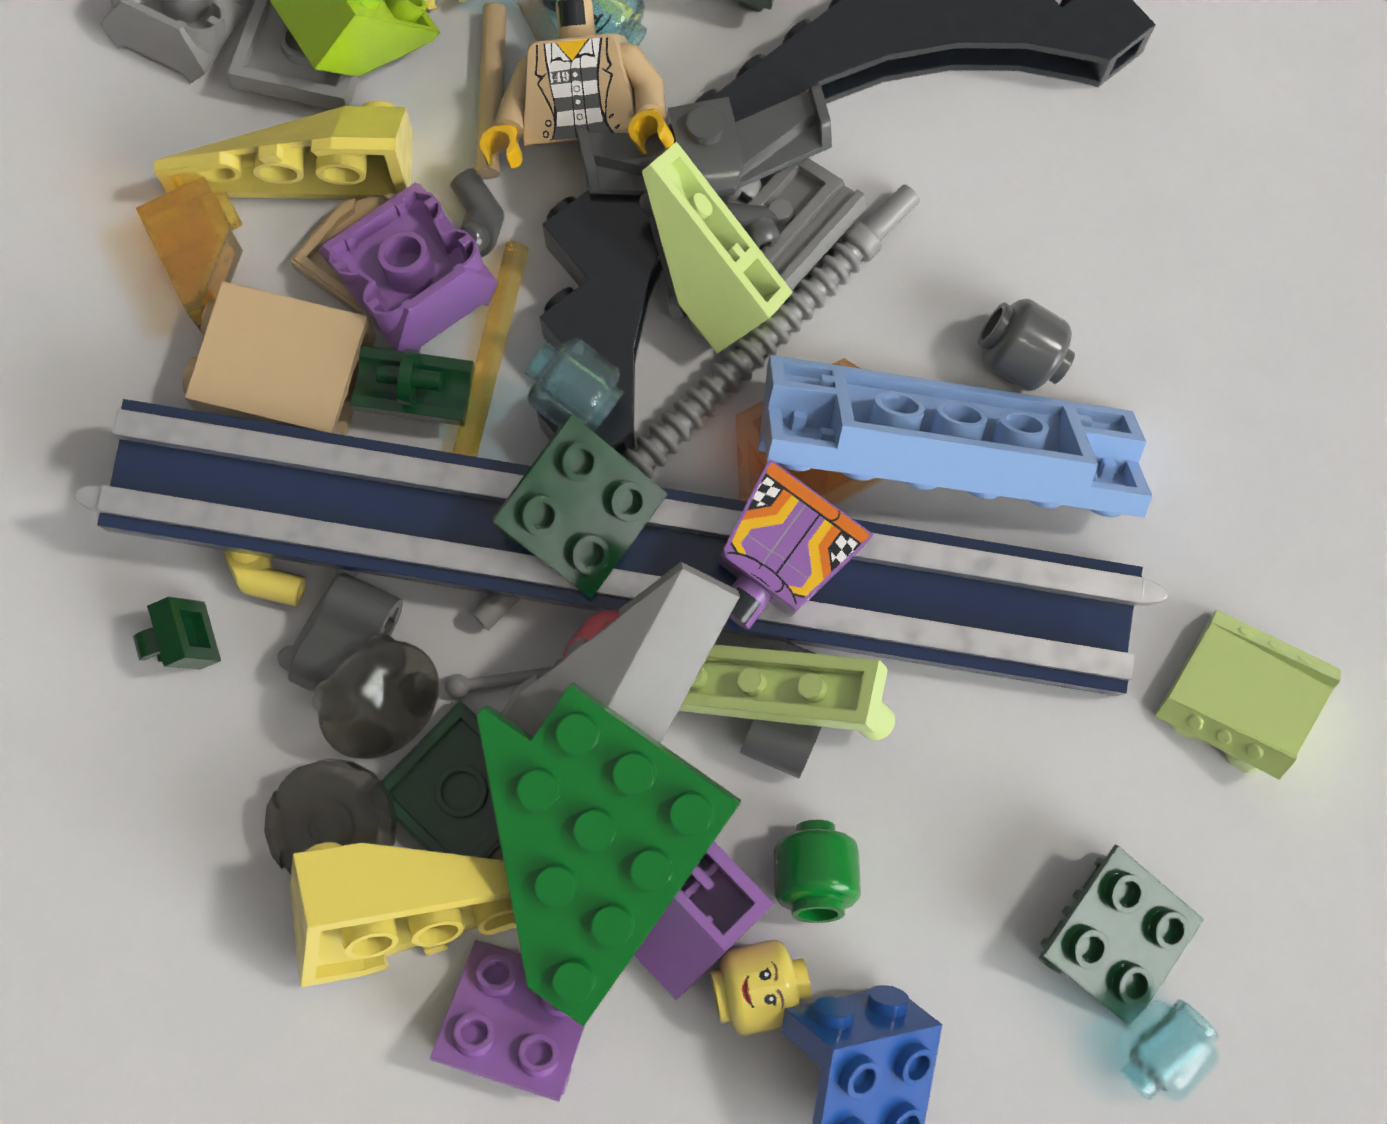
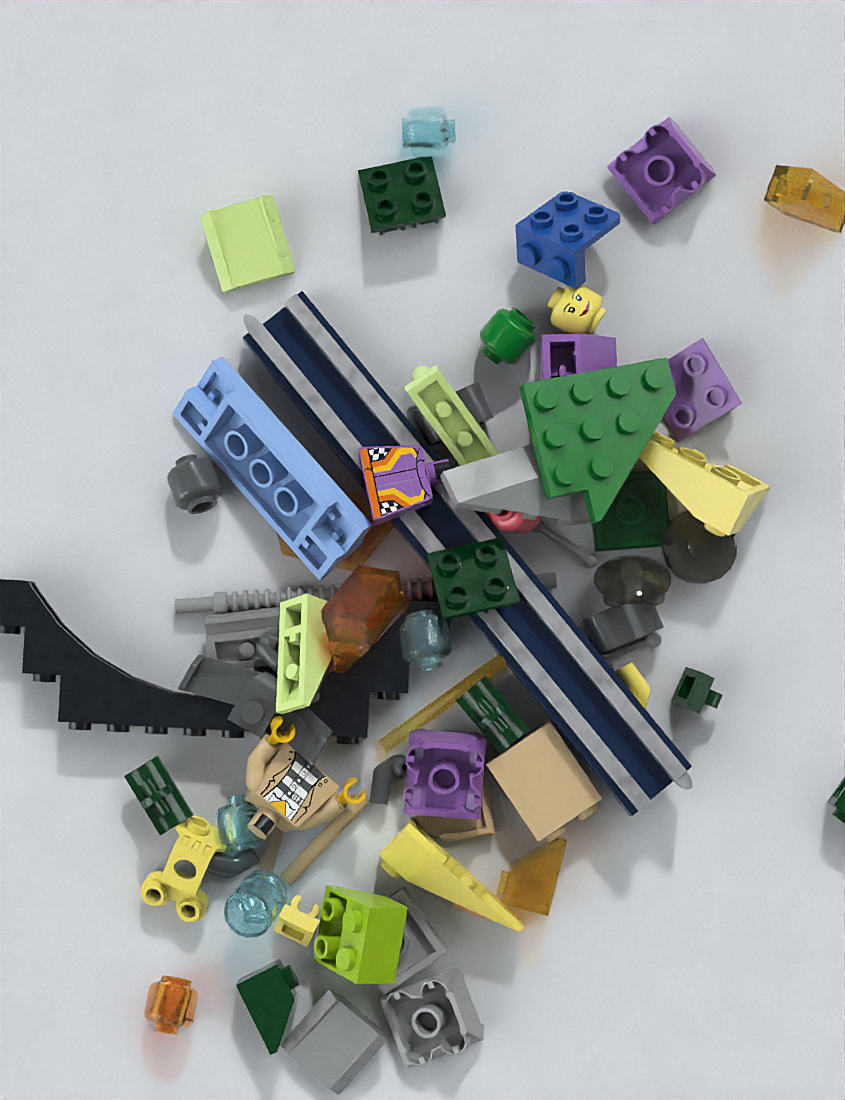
camera: 135 degrees left, 10 degrees up
(683, 348) = (361, 613): none -> clear orange slope

